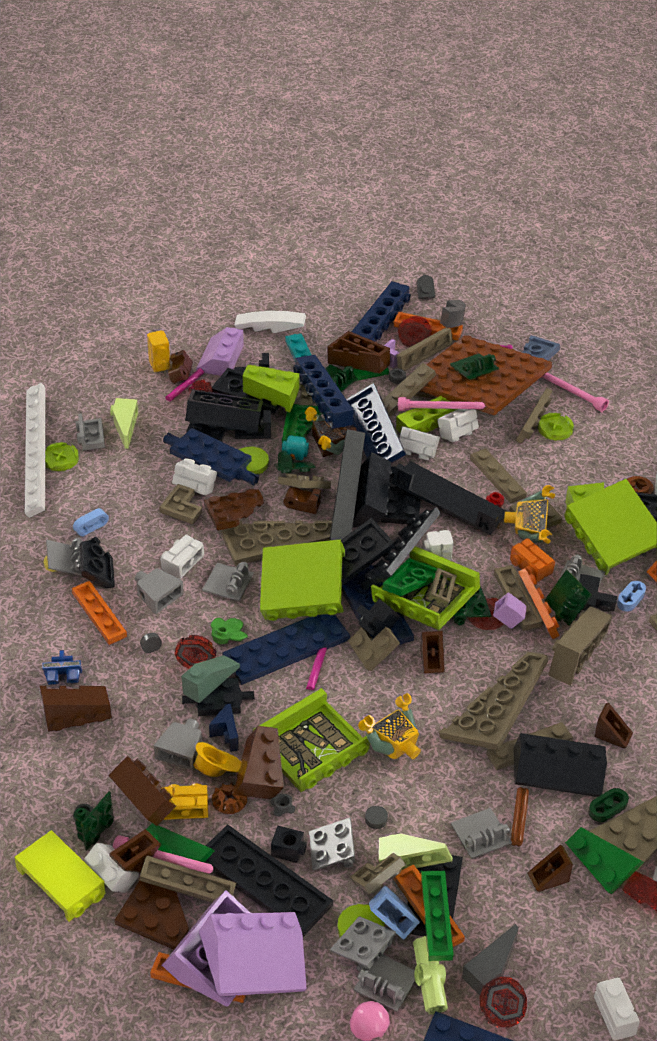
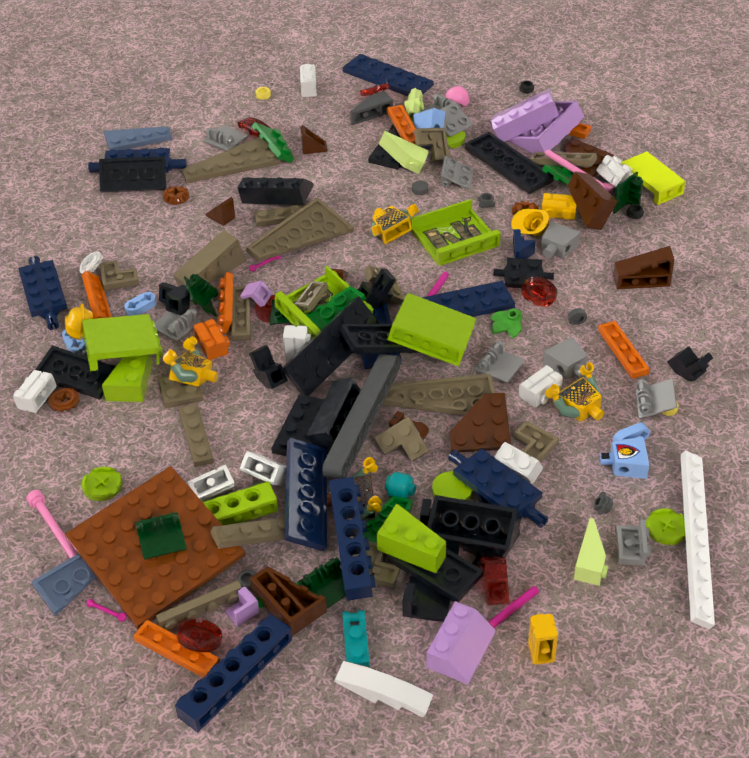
camera: 165 degrees left, 0 degrees up
(26, 598) = (689, 365): none -> black brick
(62, 665) = (655, 305): blue hips -> none
(95, 496) = (627, 458): none -> light blue torso
(96, 564) = (625, 386): black tile -> none
(116, 460) = (603, 503): none -> dark grey plate
(133, 853) = (601, 167): reddish brown slope -> none
(144, 545) = (580, 398): none -> torso
(180, 367) = (517, 621): reddish brown leg -> none
(207, 676) = (536, 264): sand green slope -> none
(261, 765) = (500, 207): reddish brown wedge -> none
(282, 838) = (488, 175): black brick -> none
(286, 465) = (409, 459): dark green hinge -> none
(405, 404) = (261, 509): bright pink piece -> none
(425, 287) = (148, 721): dark grey plate -> none
(437, 916) = (402, 111): green plate -> none
(448, 497) = (260, 404): black bracket -> none
(453, 313) = (130, 651): dark grey brick -> none
(461, 534) = (266, 369): none -> black brick
(481, 833) = (349, 170): light grey hinge -> none
(496, 498) = (213, 407): red plate -> none
(519, 816) = (320, 172): dark orange axle -> none
(533, 420) = (124, 484): dark tan plate -> none
(606, 805) = (255, 170): dark green plate -> none

